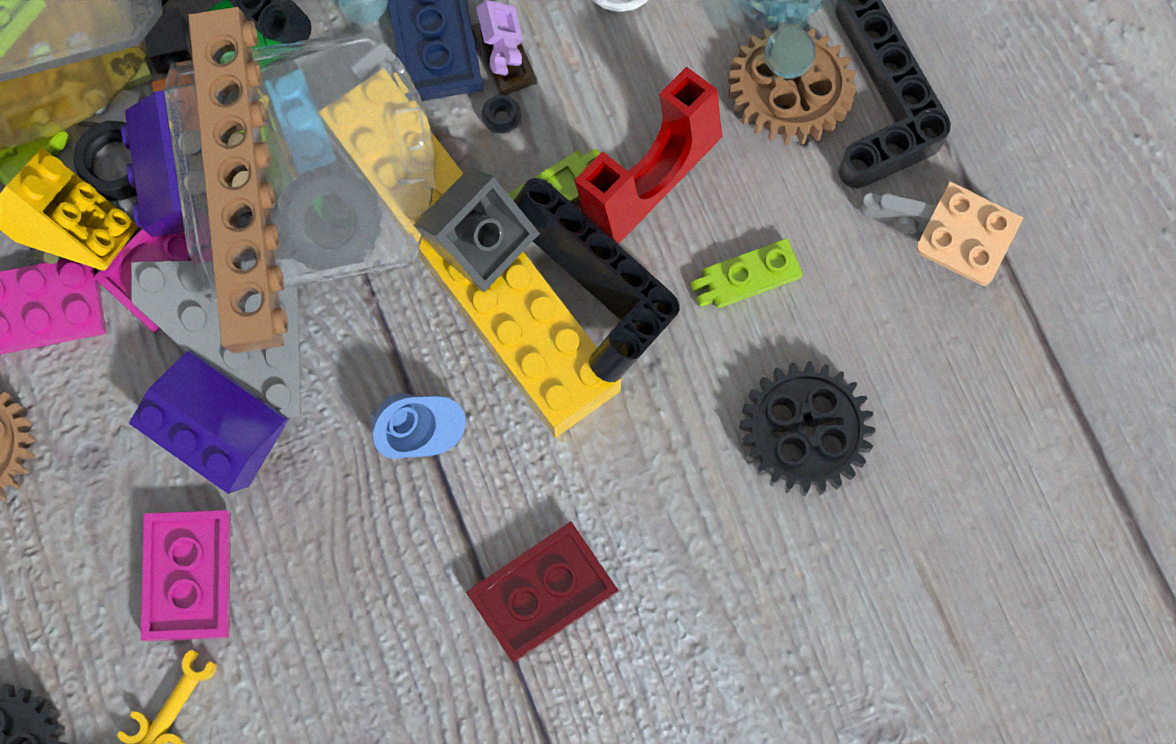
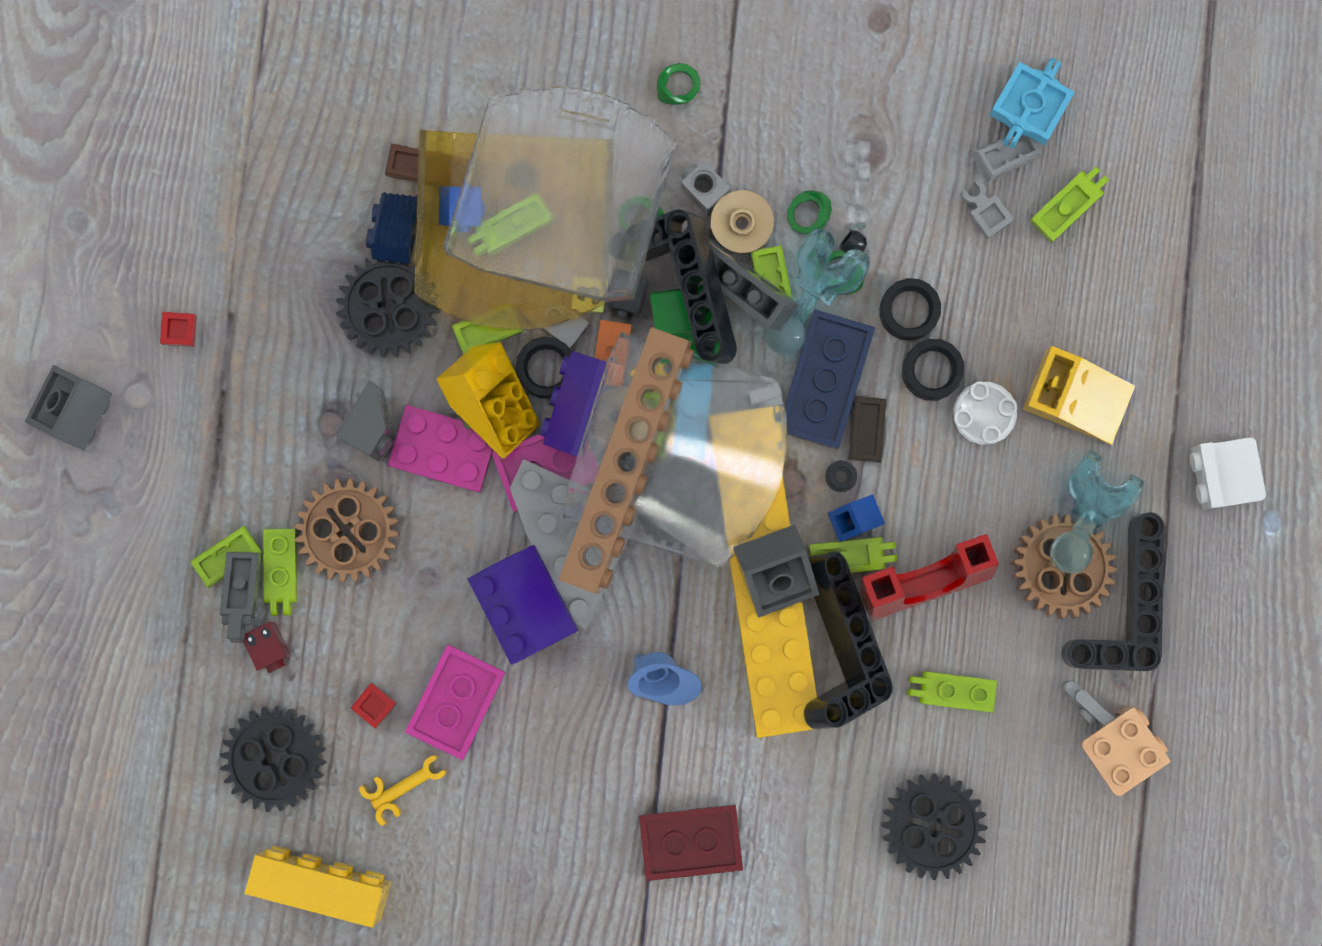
camera: 30 degrees right, 10 degrees up
(90, 629) = (373, 705): none -> red plate
(502, 29) = (873, 417): lavender plate -> none
(539, 142) = (856, 518): none -> blue brick

